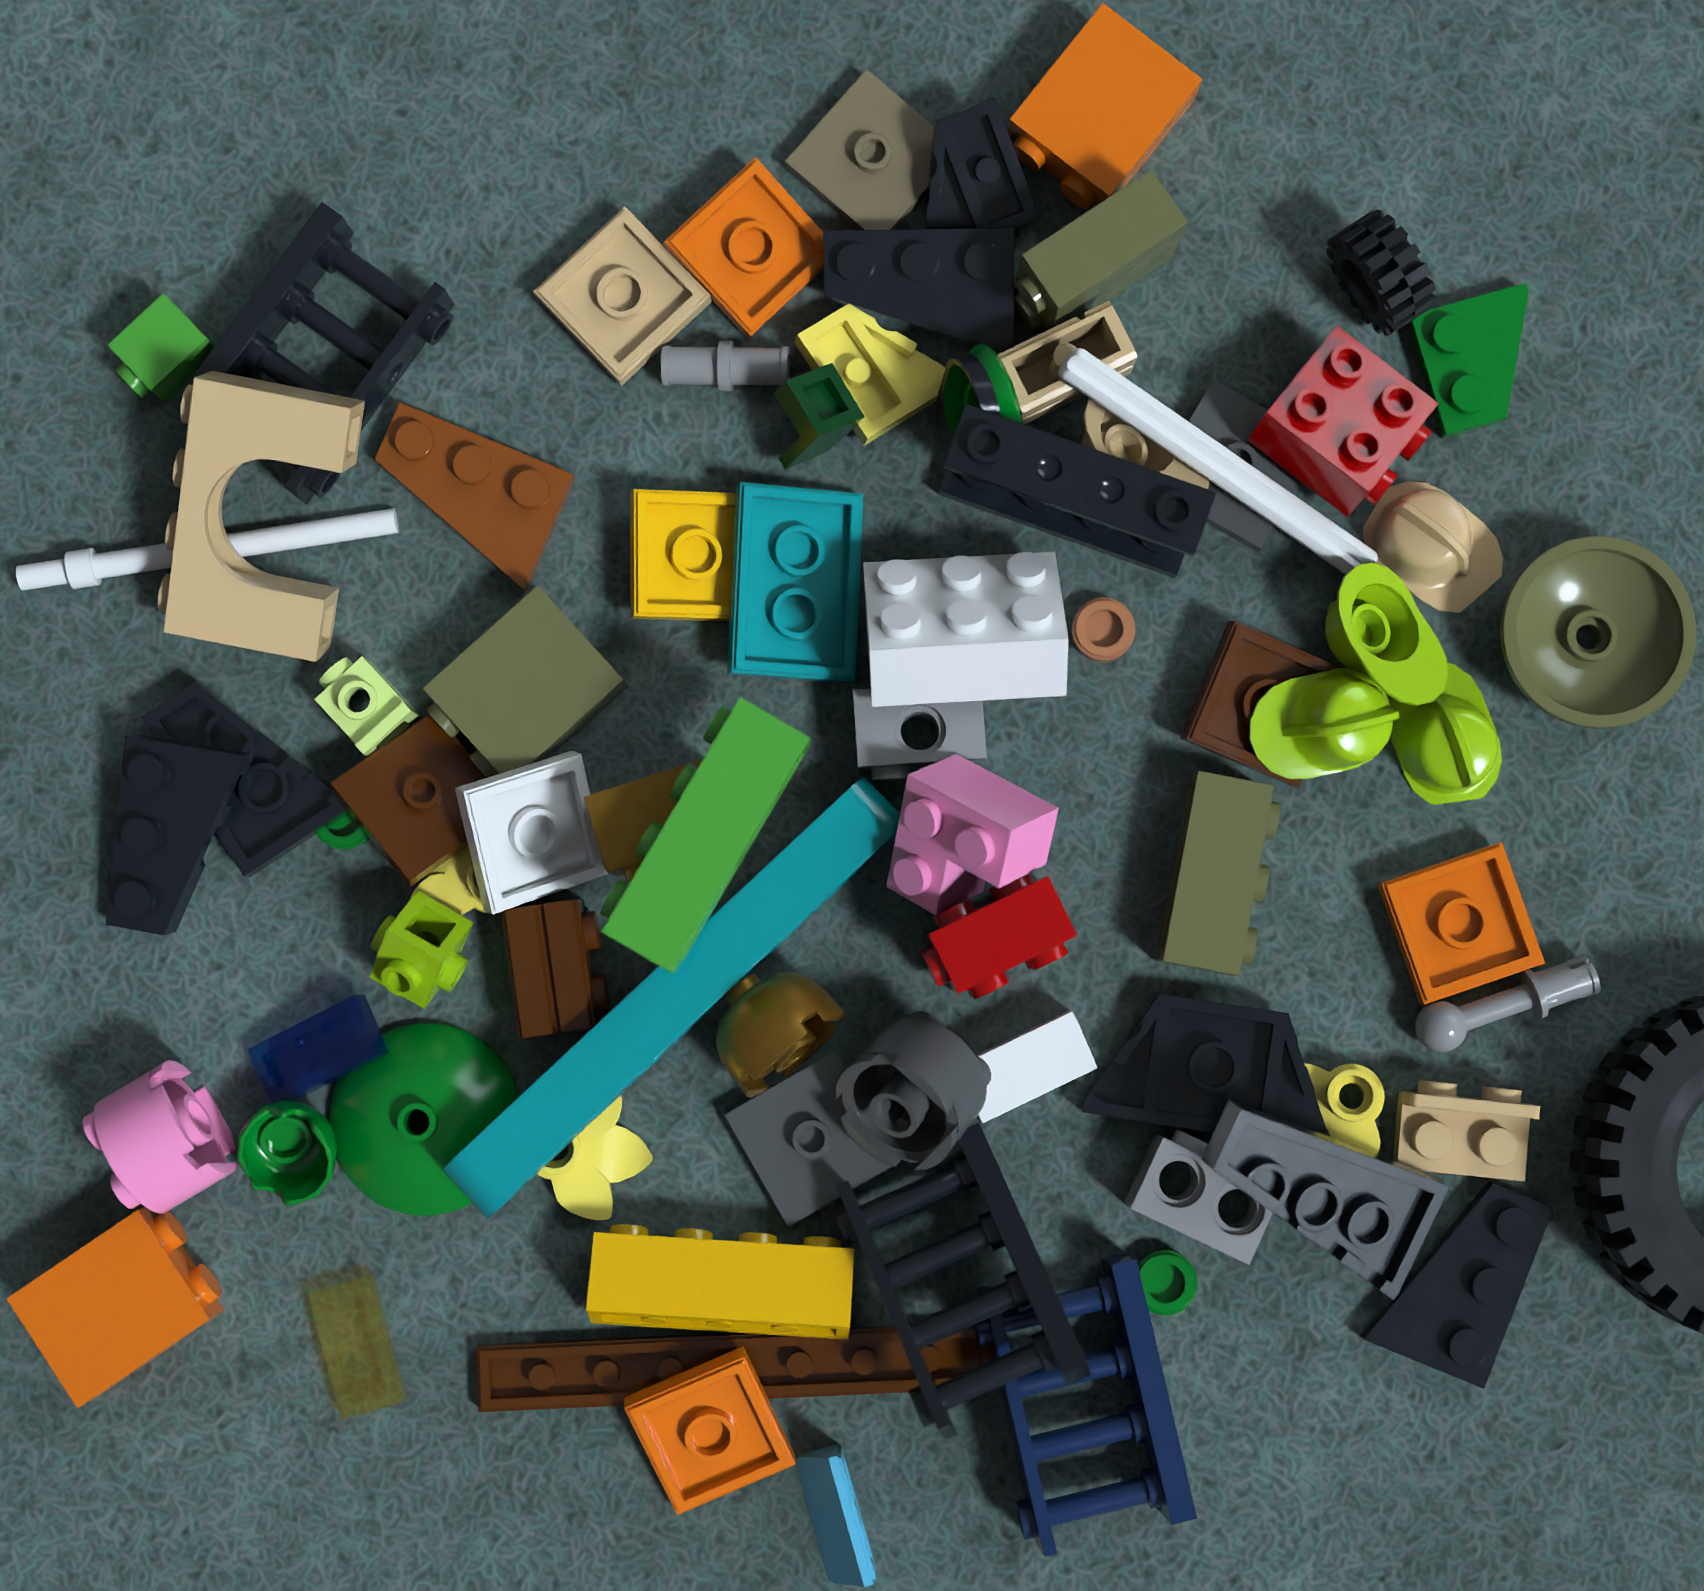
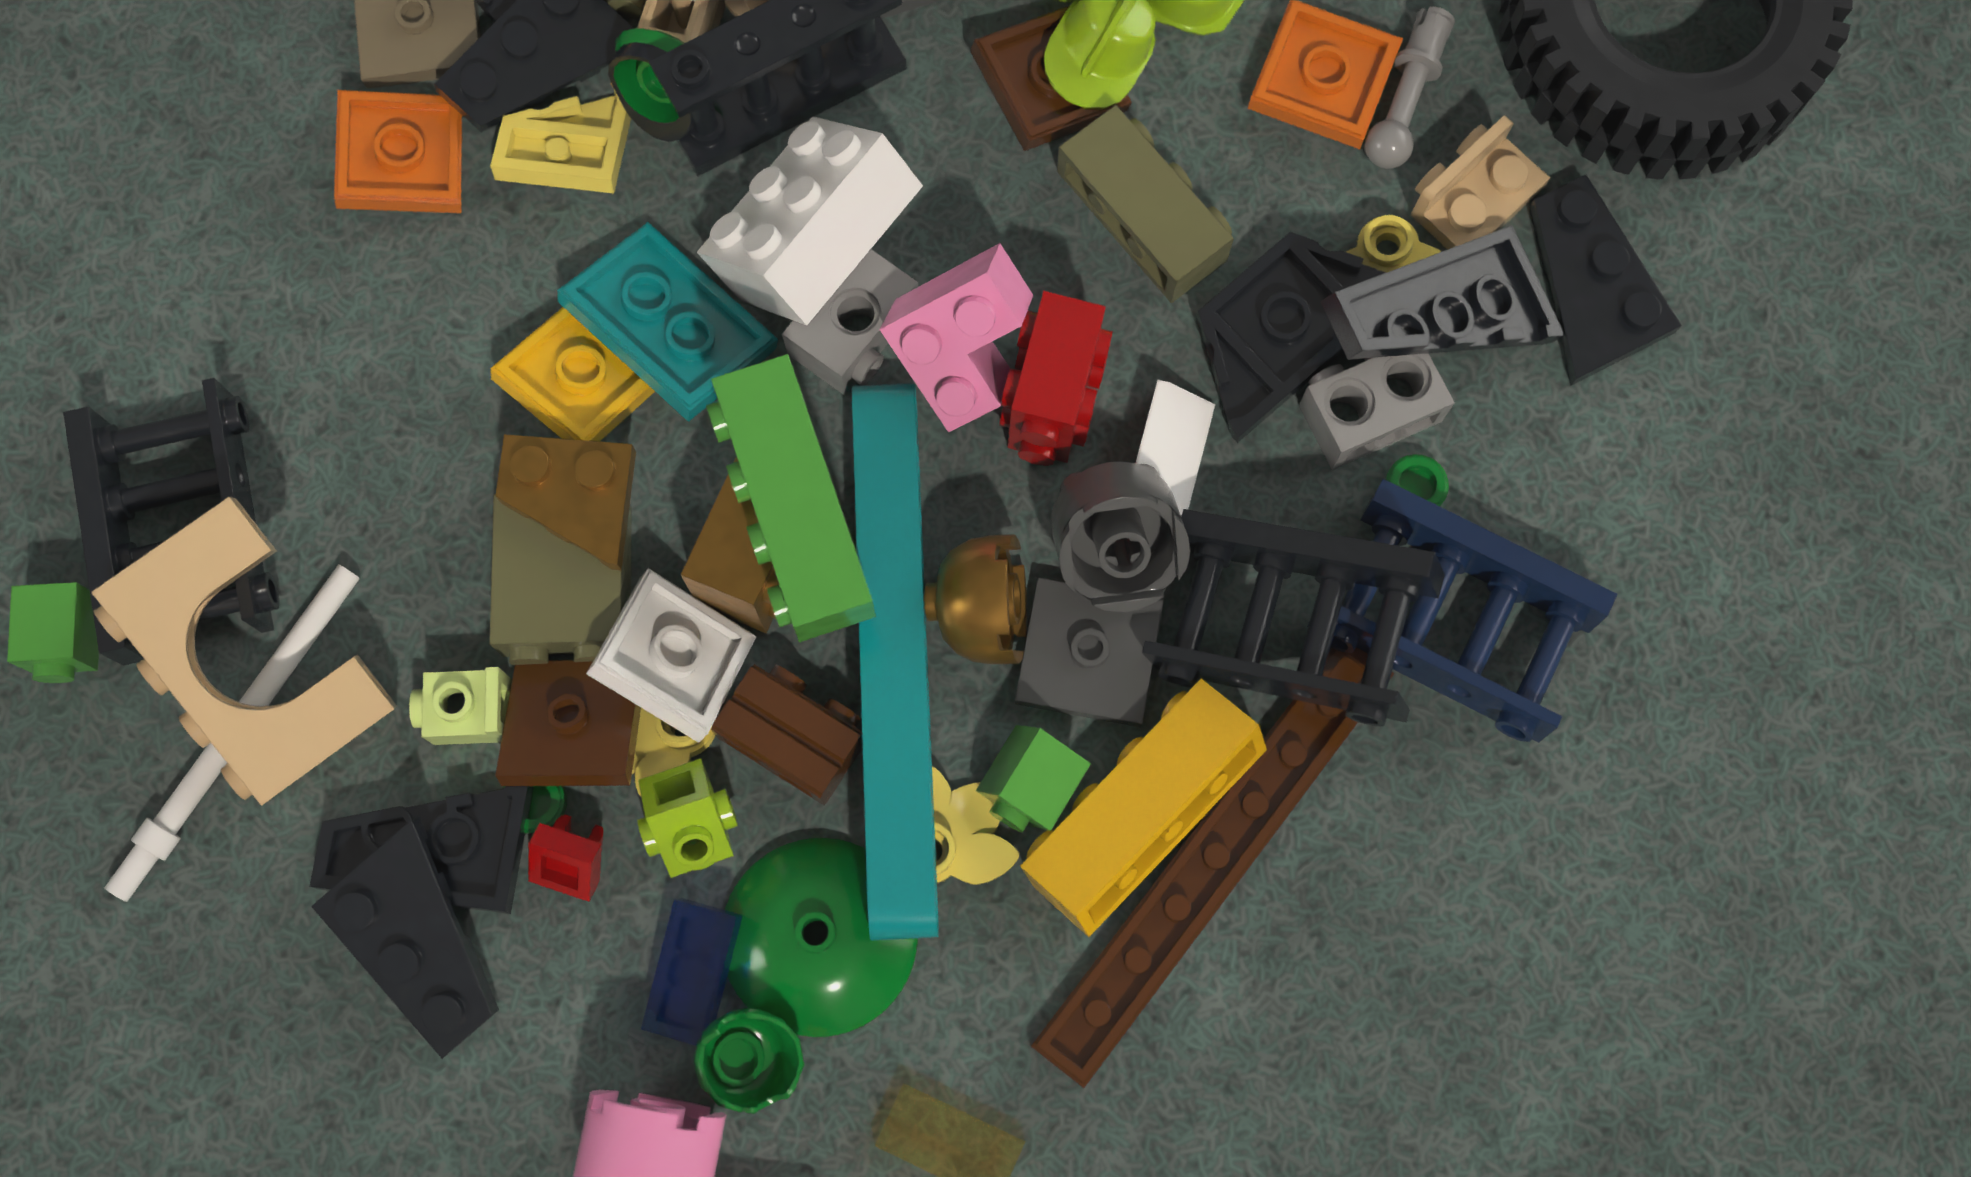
camera: 50 degrees left, 10 degrees down
(318, 887) = (565, 859): none -> red tile
(478, 487) = (384, 488): dark orange wing -> none
(586, 644) = (571, 489): none -> pearl gold wing
(622, 296) = (345, 268): tan plate -> none
(669, 1182) = (1032, 779): none -> bright green brick
(709, 1430) = (1250, 913): orange plate -> none
(725, 365) = (465, 239): light grey pin -> none
(820, 412) = (560, 197): dark green panel -> none
(836, 1517) = (1398, 873): medium azure slope -> none
(1102, 629) = (906, 135): nougat tile -> none

